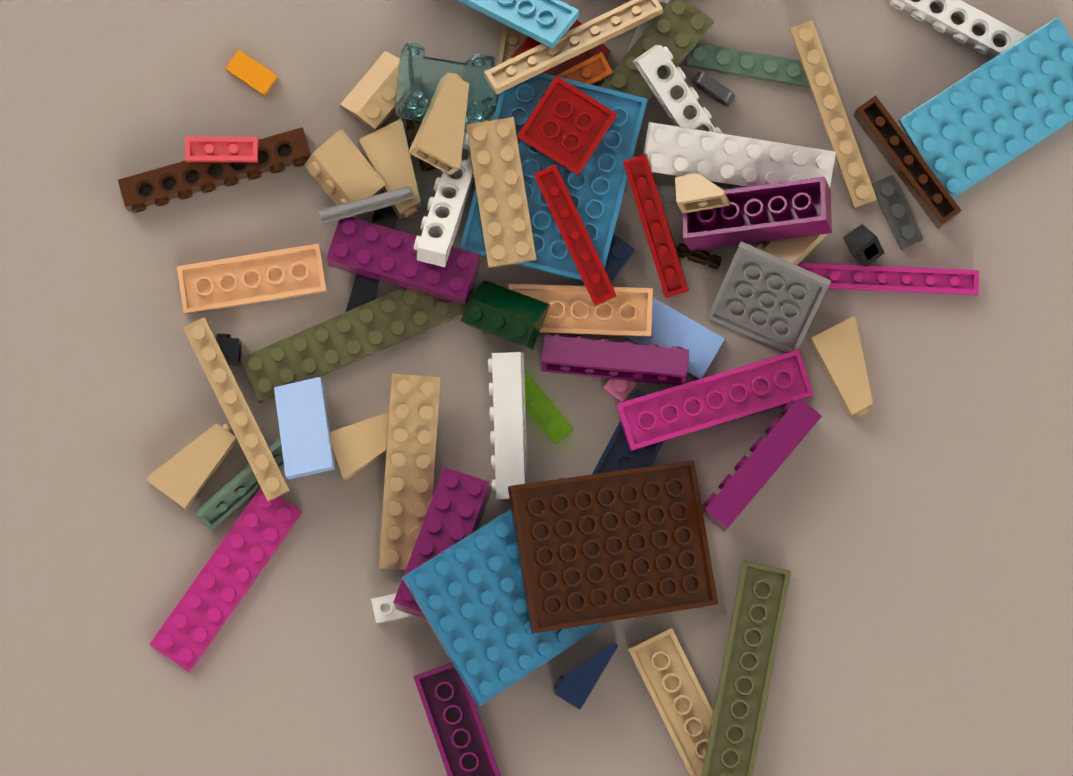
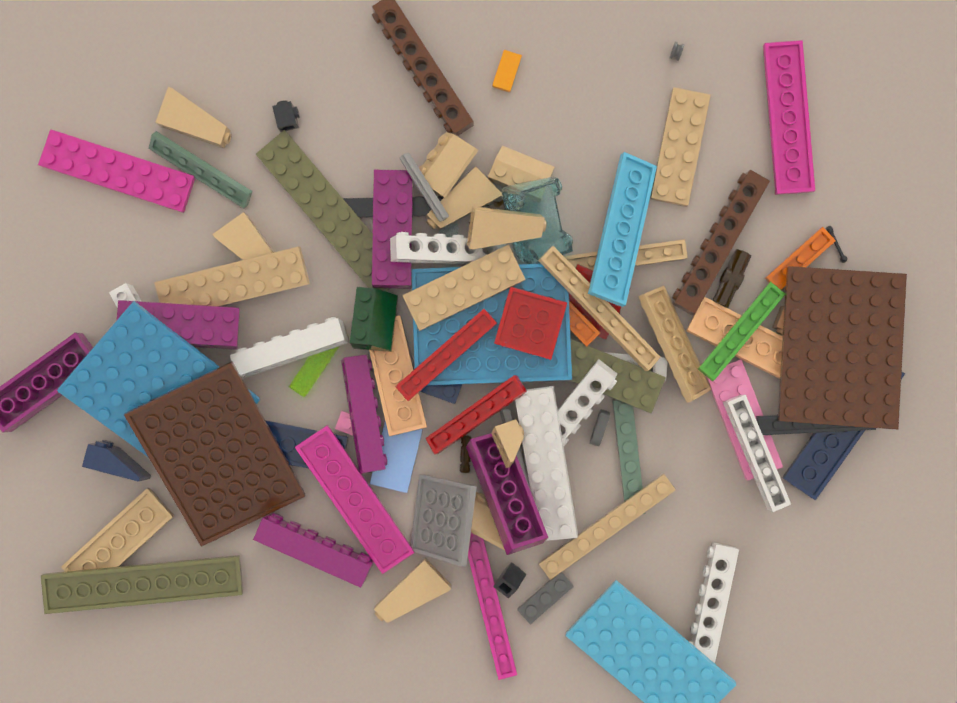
camera: 75 degrees right, 5 degrees up
(221, 149) = (436, 64): coral plate -> none
(236, 409) = (240, 137): tan plate -> none
(251, 279) = (347, 119): light nougat plate -> none
(304, 428) = (240, 193): light blue tile -> none
(907, 162) = (585, 596): reddish brown brick -> none

